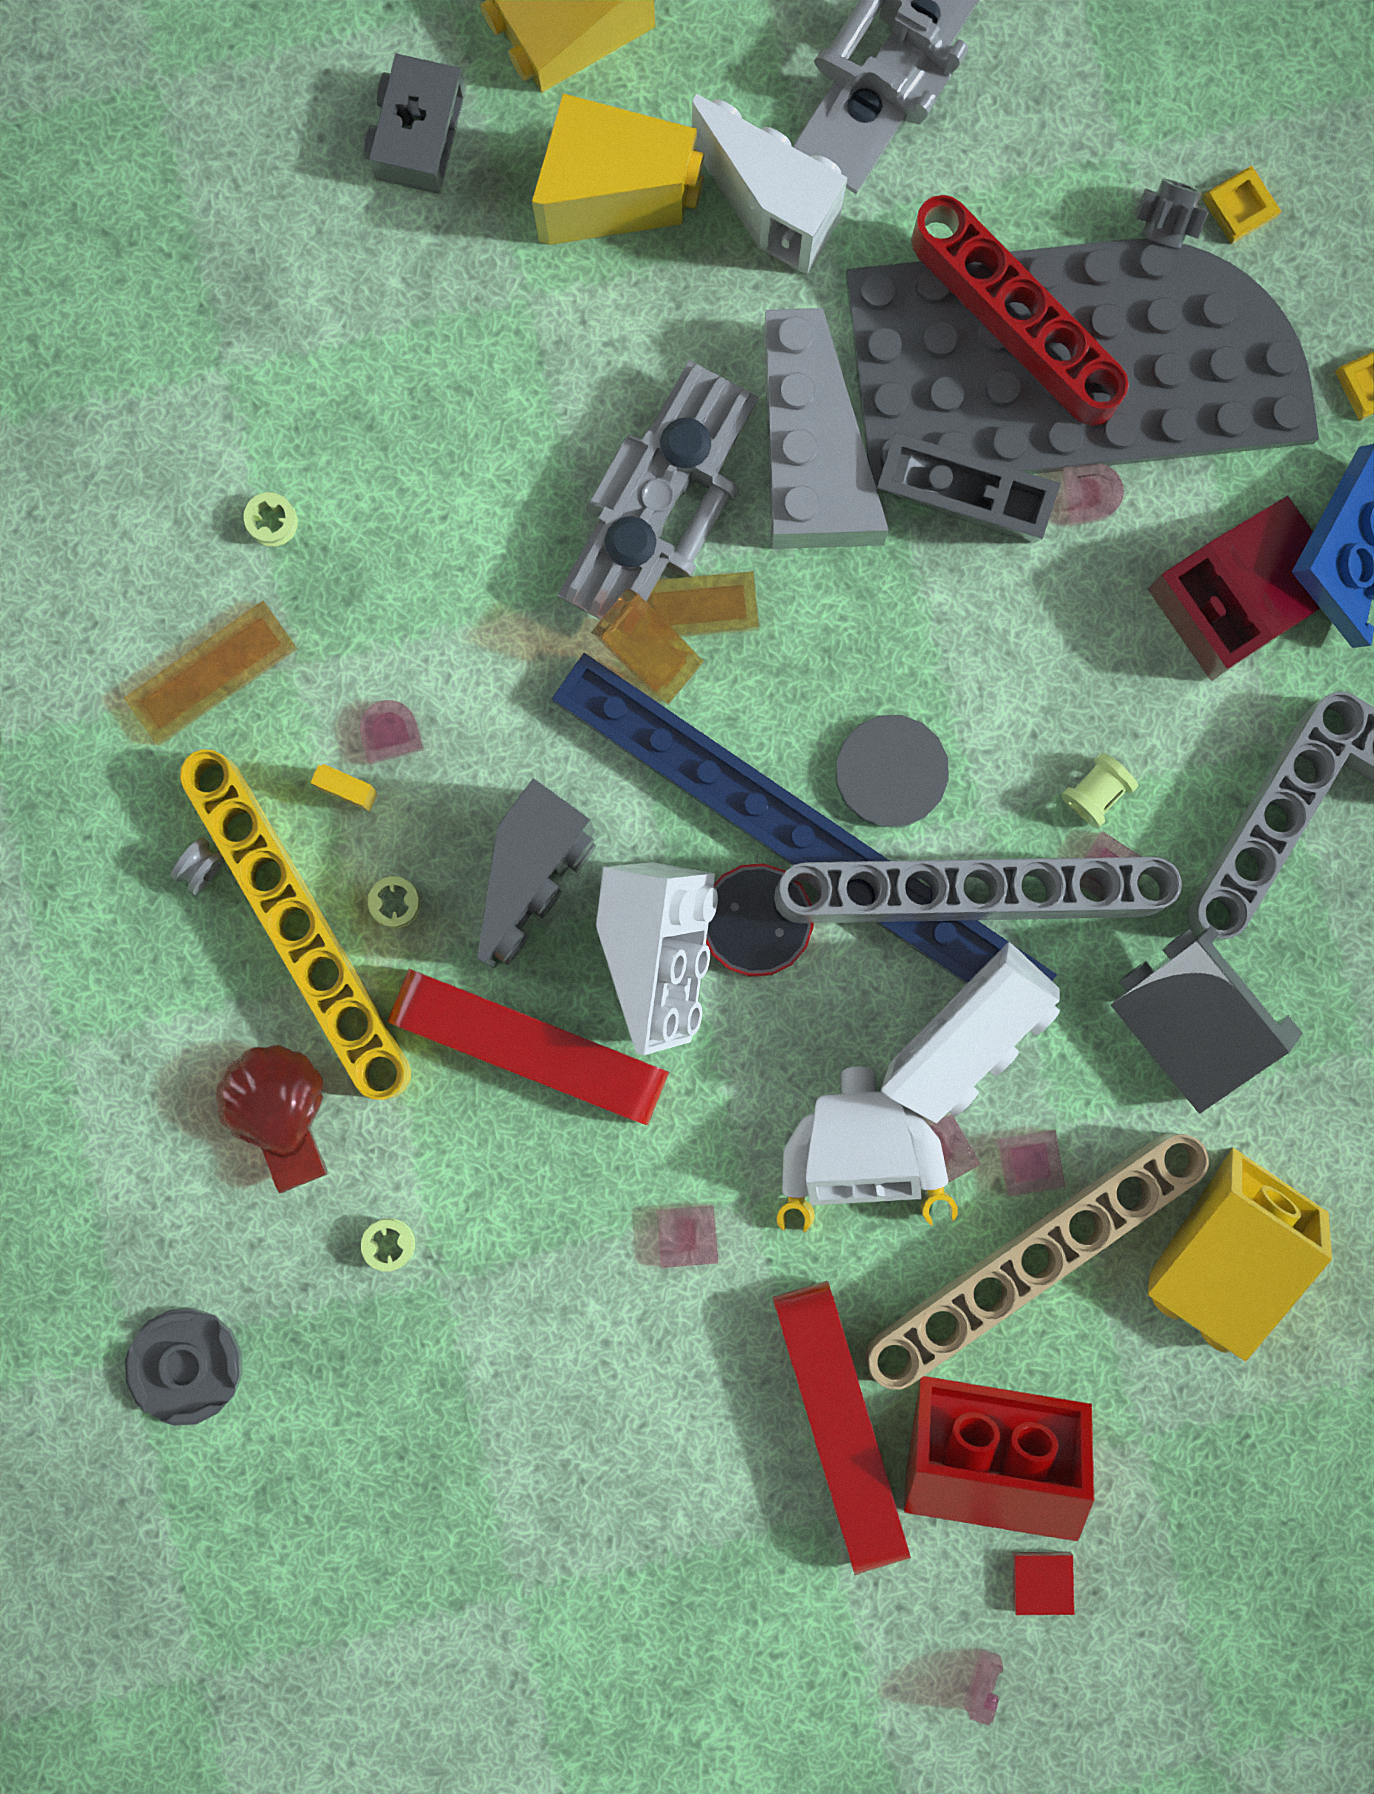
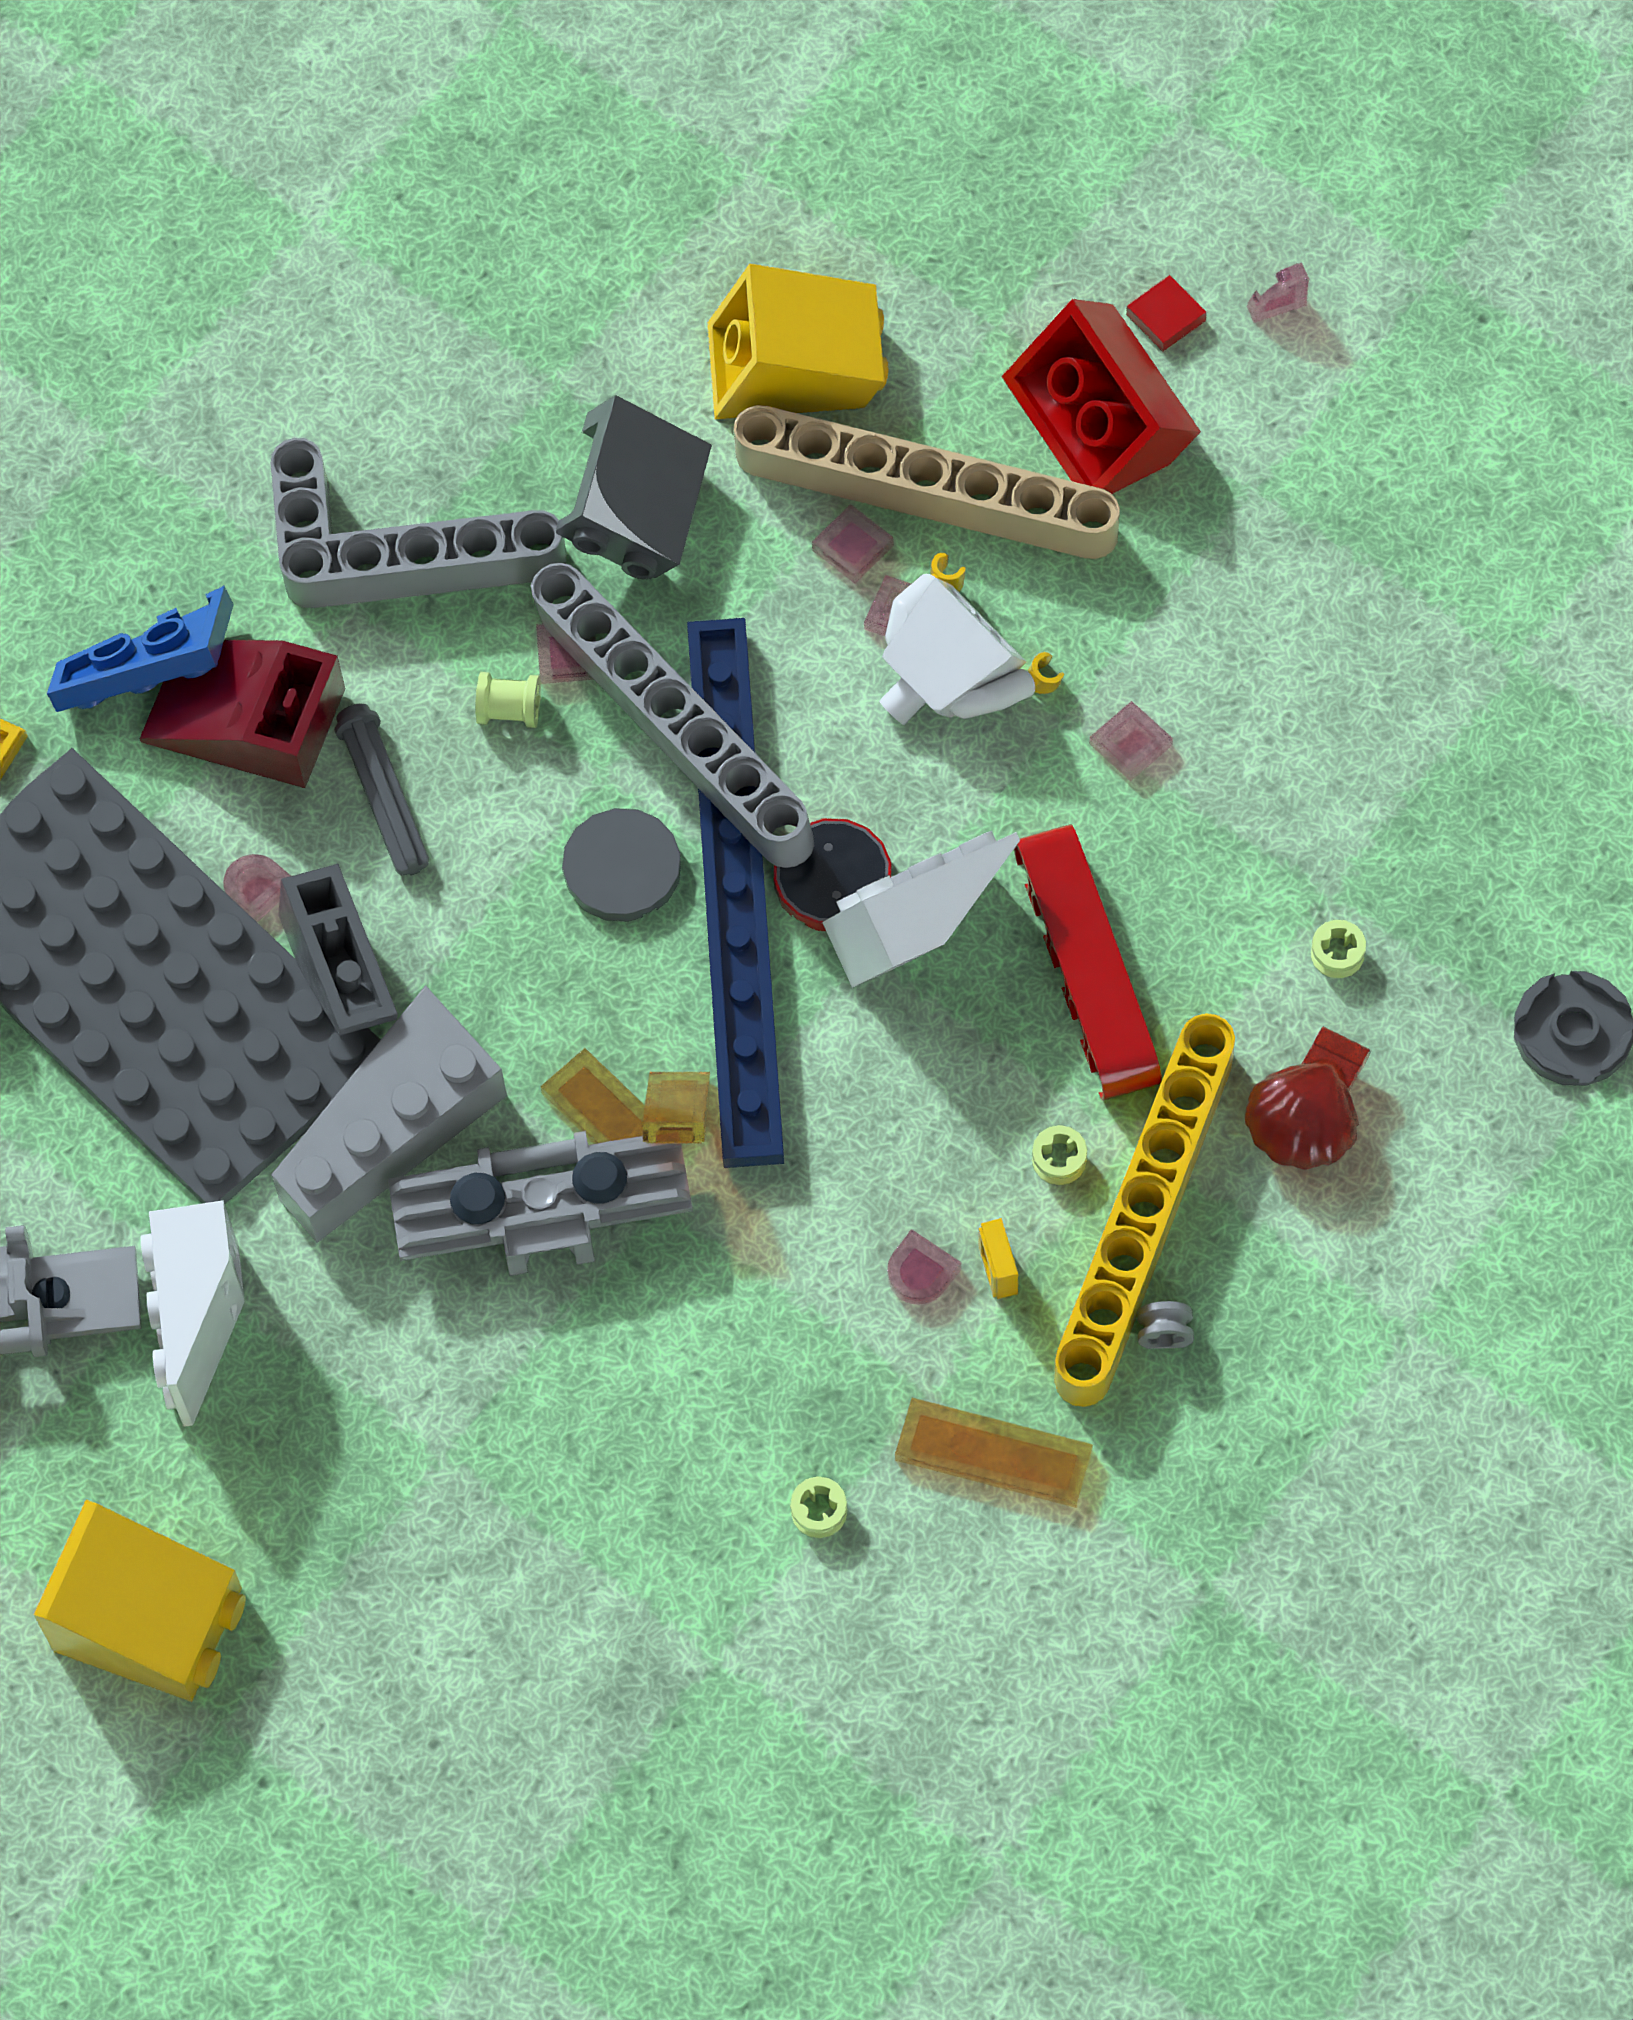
camera: 125 degrees left, 20 degrees down
(422, 153) = (389, 1636): dark grey brick -> none
(531, 842) = (946, 1049): dark grey slope -> none
(614, 173) = (287, 1435): yellow slope -> none
(841, 1427) = (1174, 523): red beam -> none
(972, 1036) = (789, 639): white slope -> none
(1011, 284) = (157, 1051): red beam -> none
(1098, 642) = (360, 731): none -> dark grey axle

